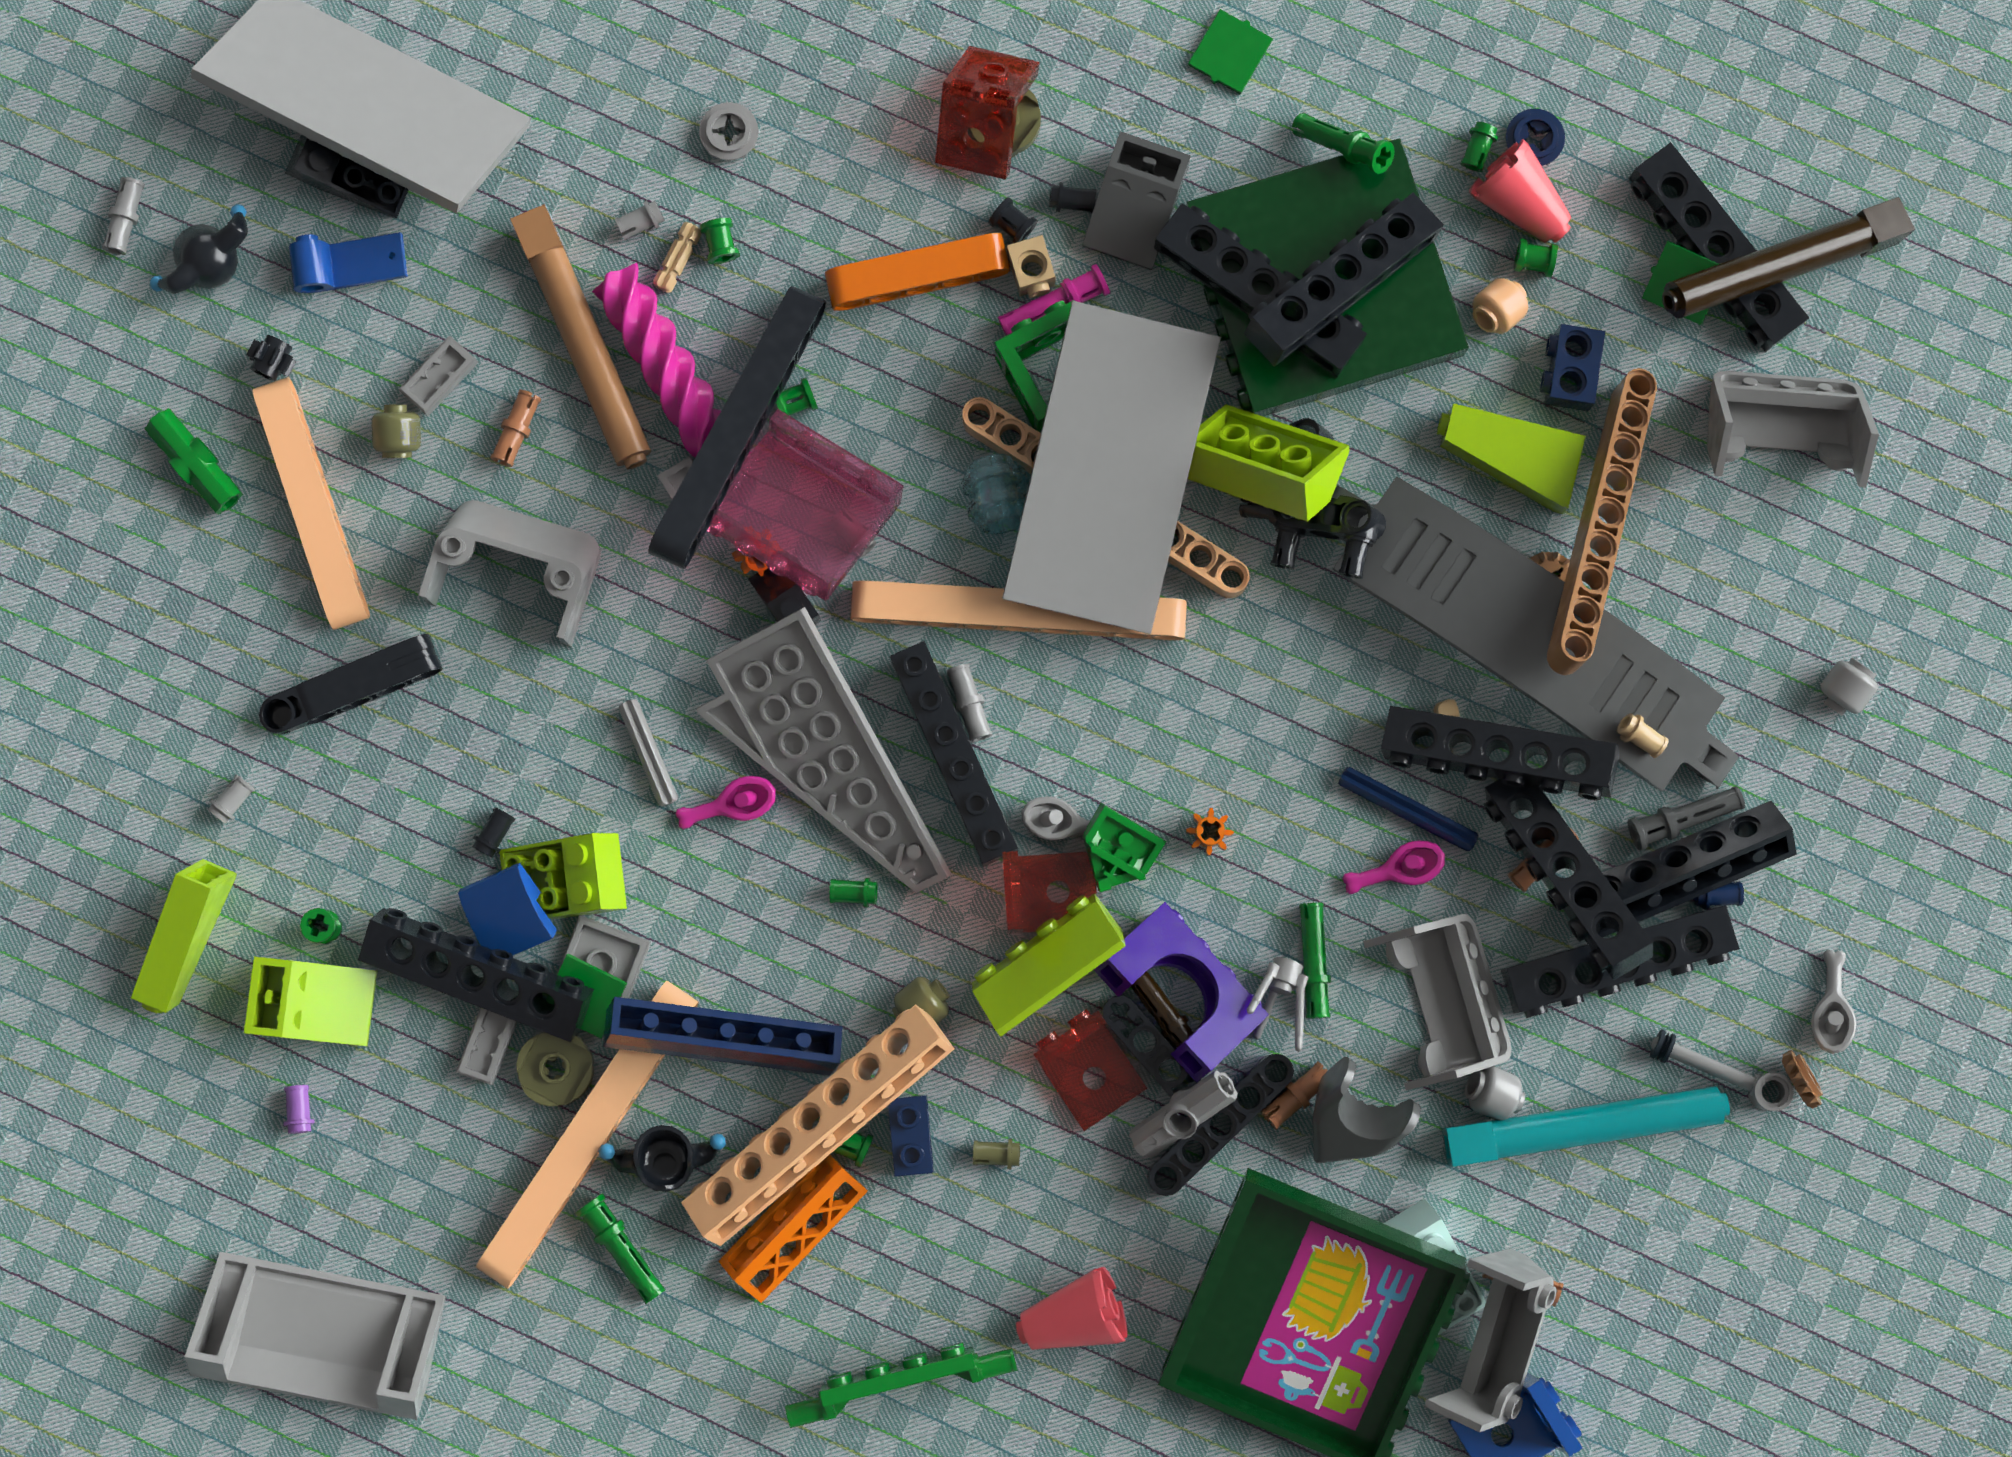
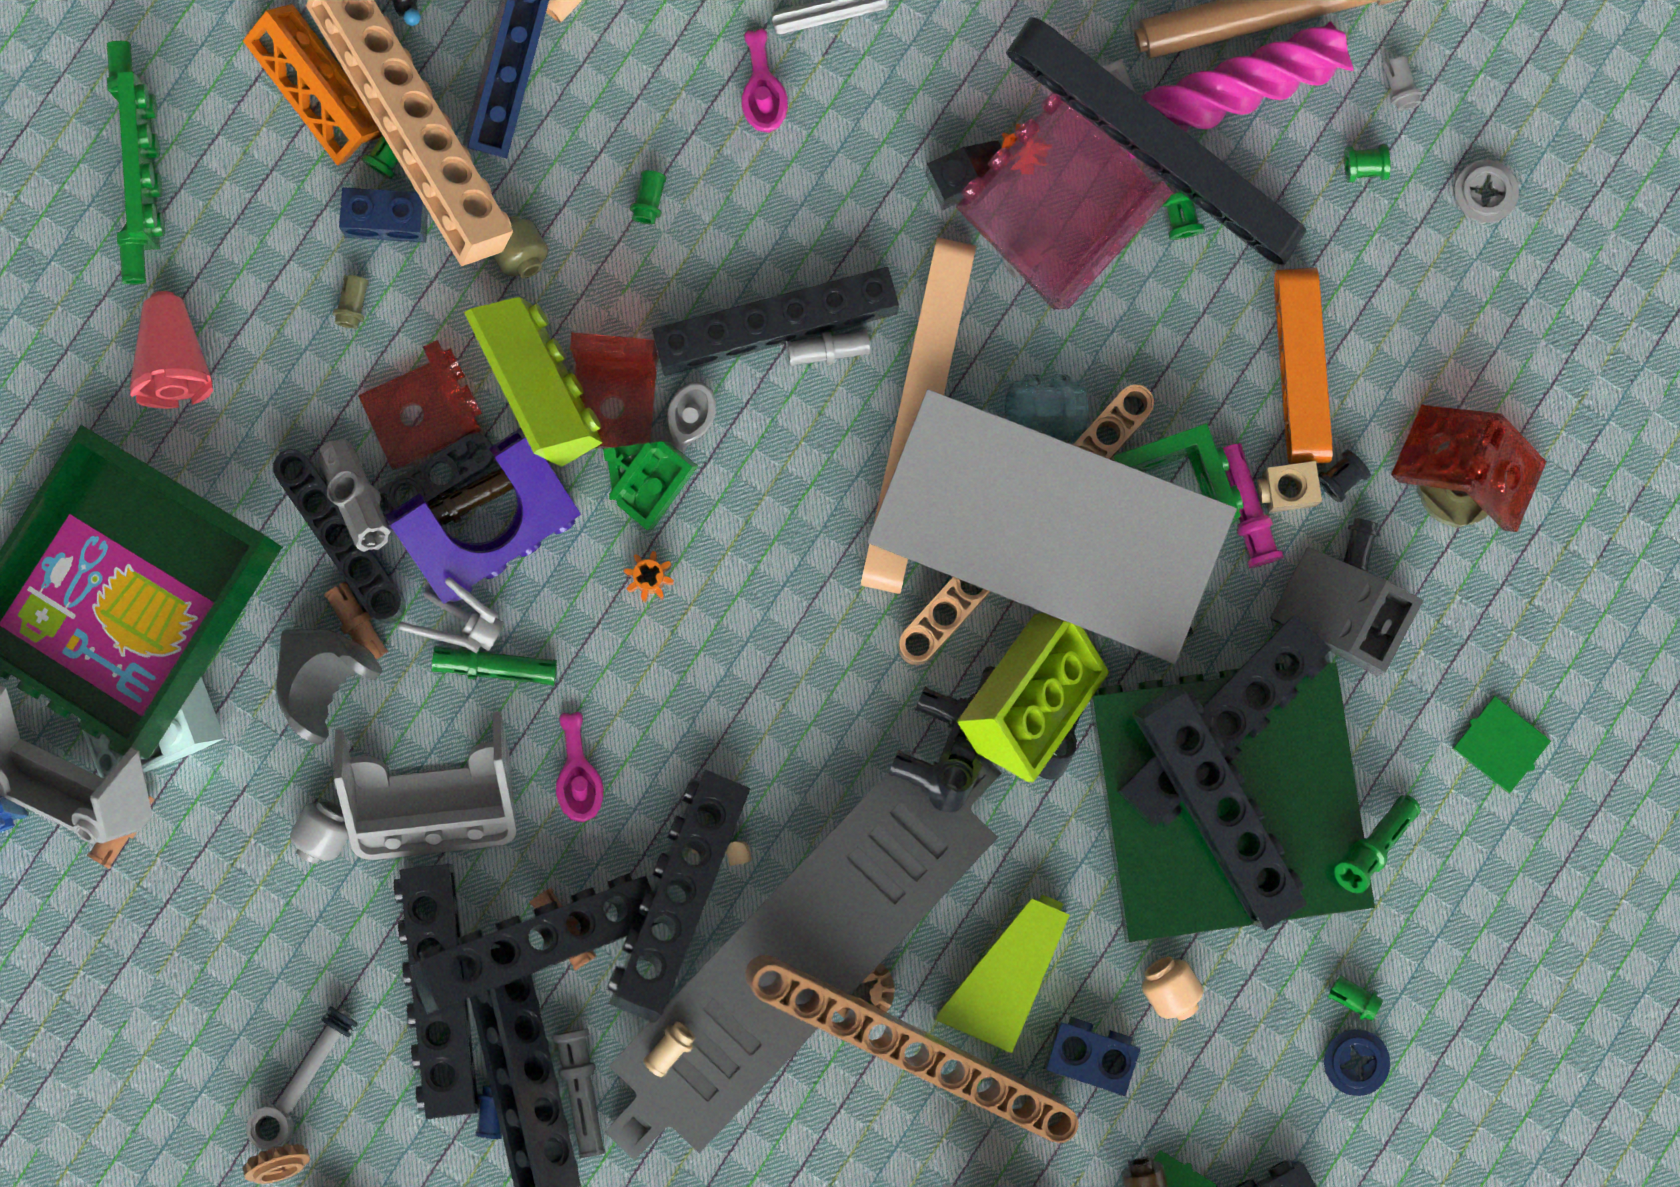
camera: 95 degrees right, 0 degrees up
(677, 257) = (1356, 117): tan axle -> none
(807, 730) = (826, 170): light grey wing -> none
(1408, 809) = (639, 794): dark blue axle -> none
(1523, 194) = (1293, 1035): coral cone -> none
(1535, 257) = (1221, 1038): green bush -> none
(1584, 1125) = (272, 817): teal brick -> none

